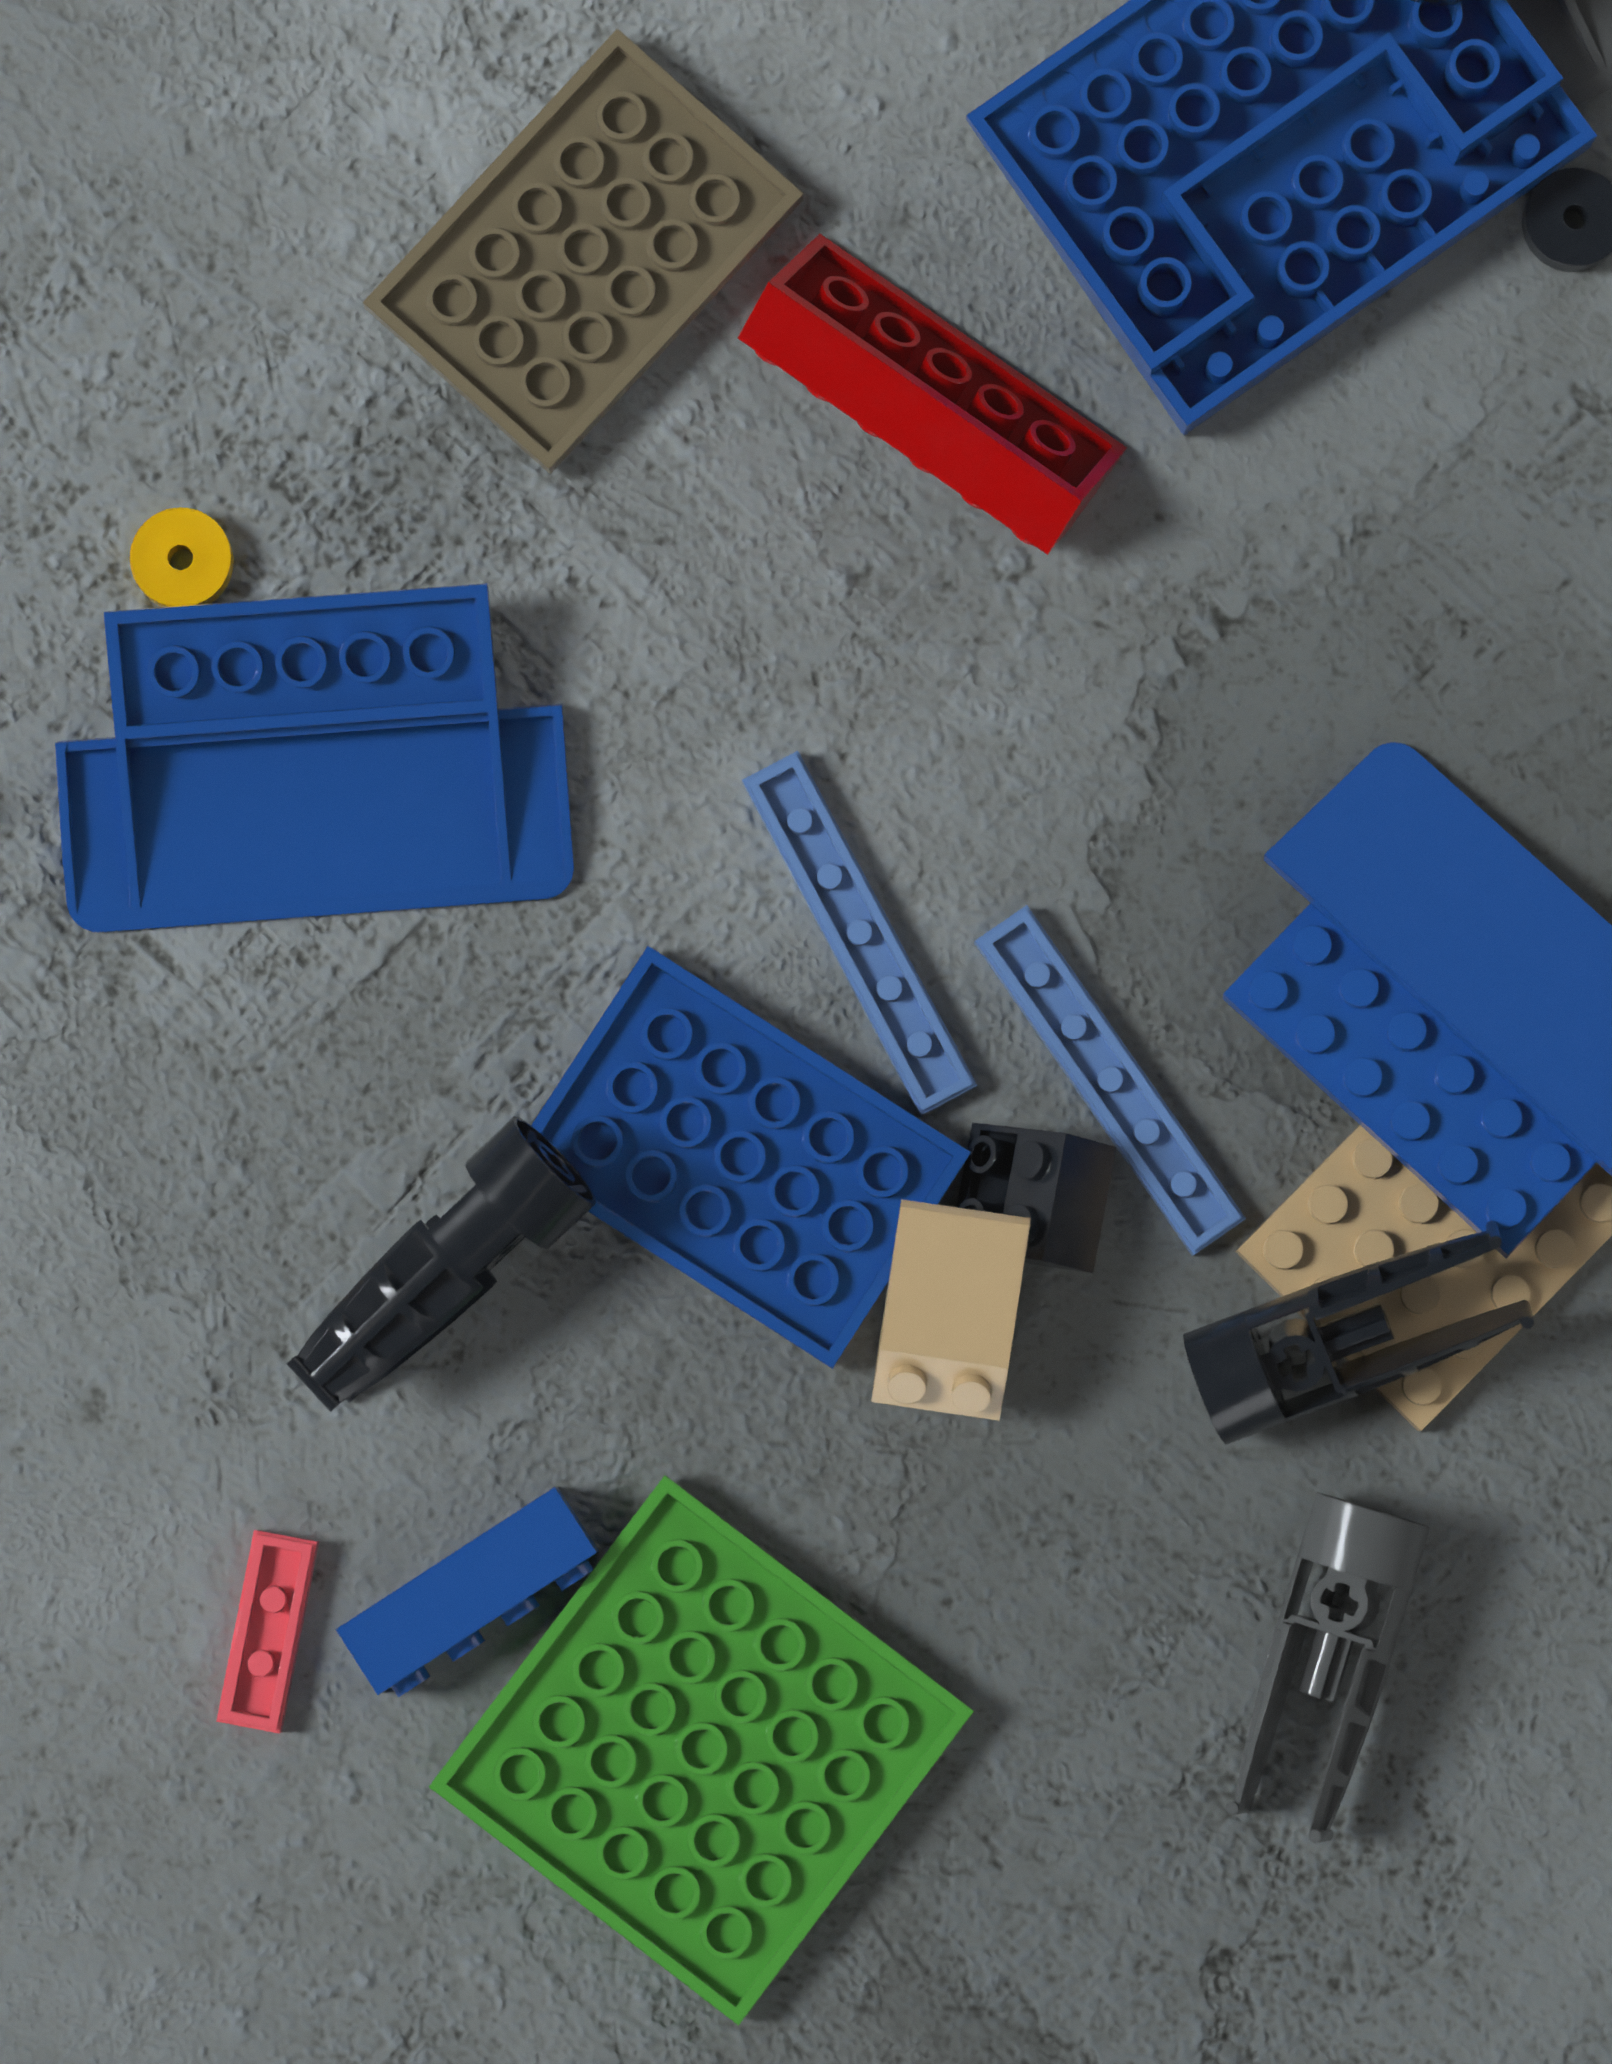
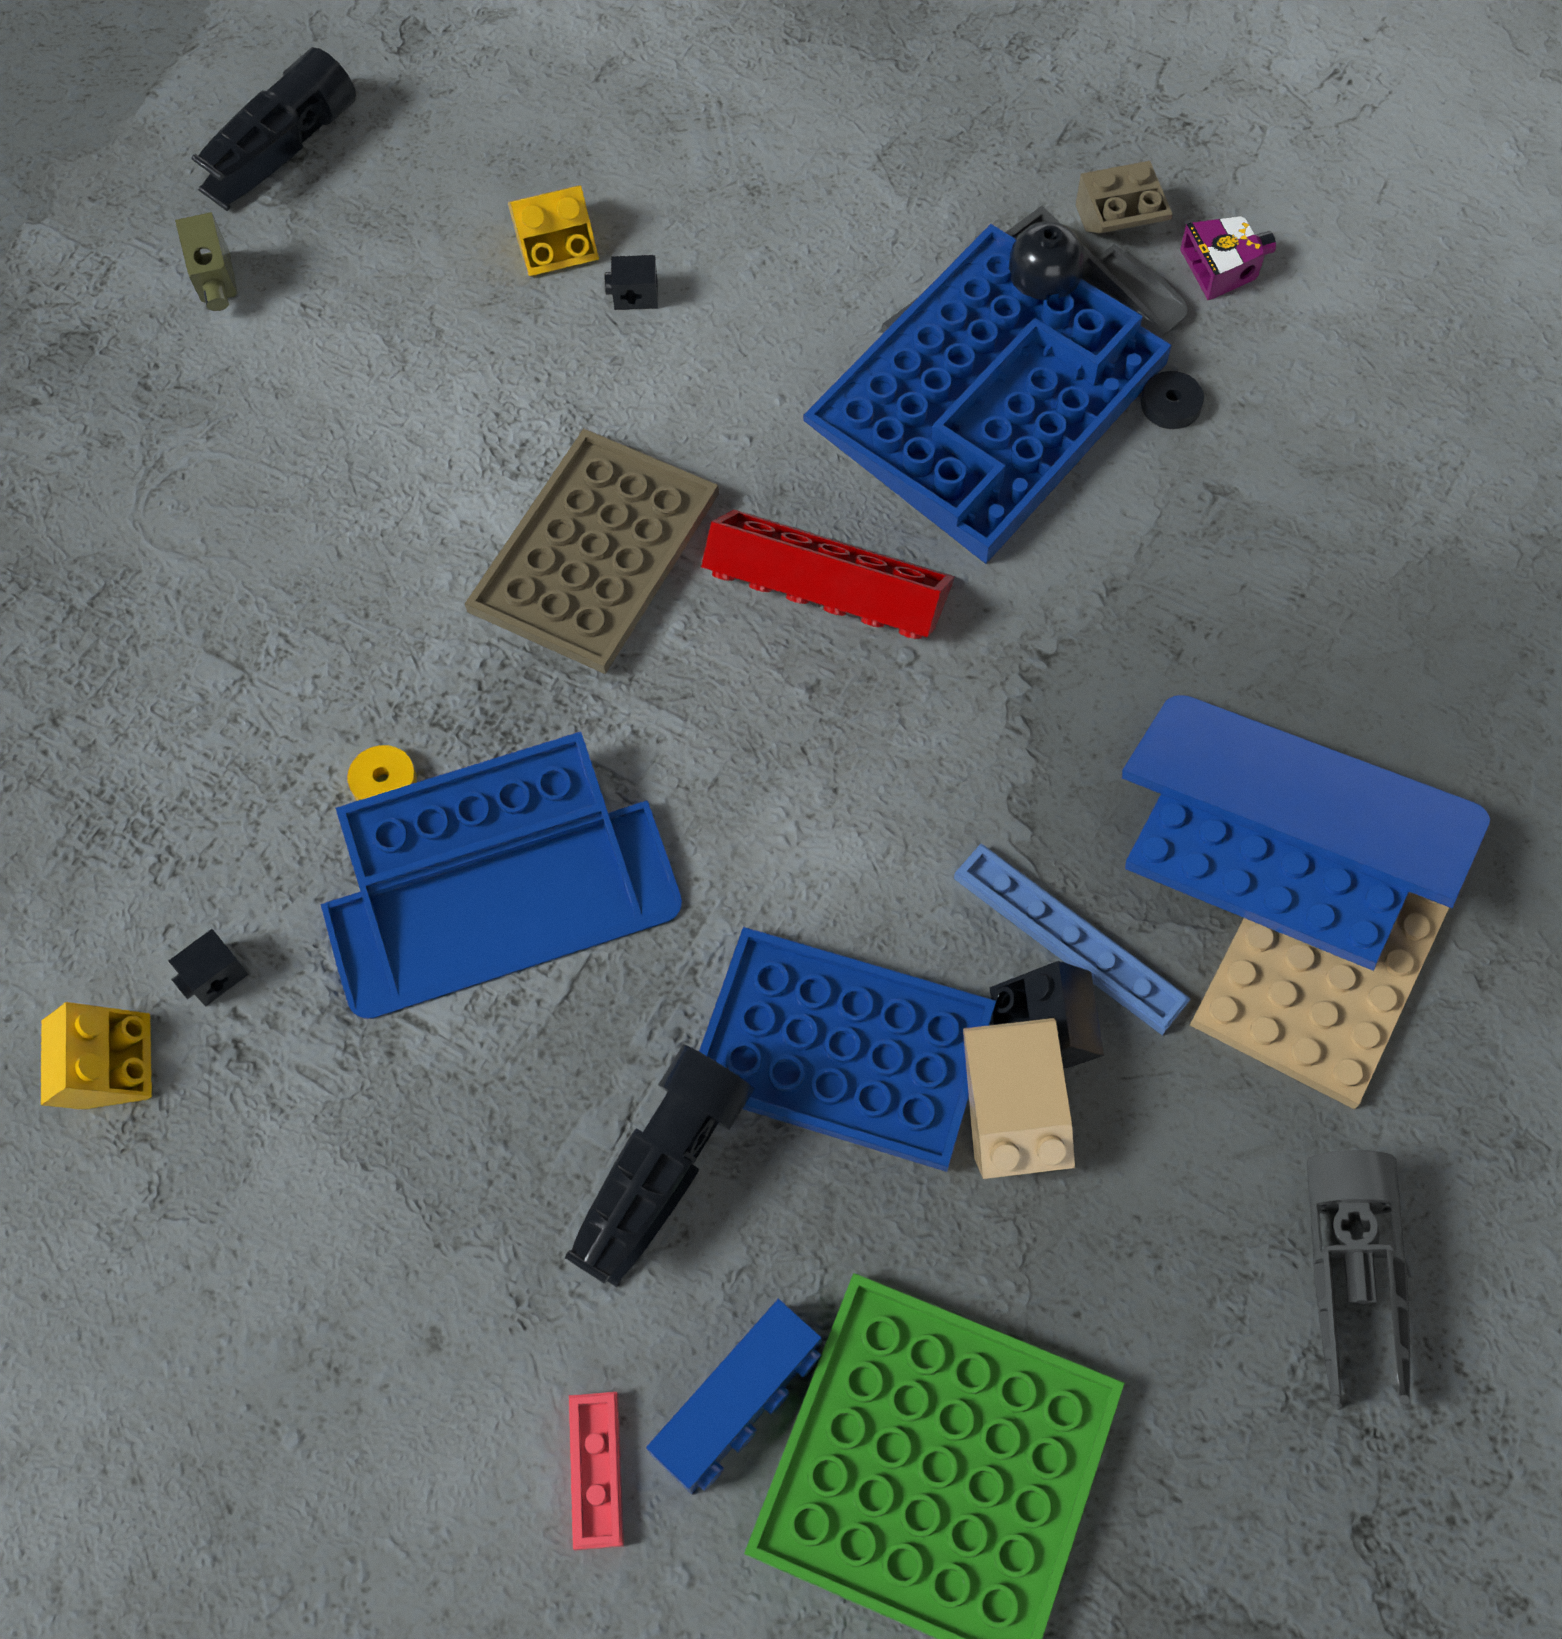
camera: 10 degrees left, 20 degrees down
(859, 933) = (880, 891): medium blue tile -> none
(1245, 1374) = (1231, 1092): black piece -> none

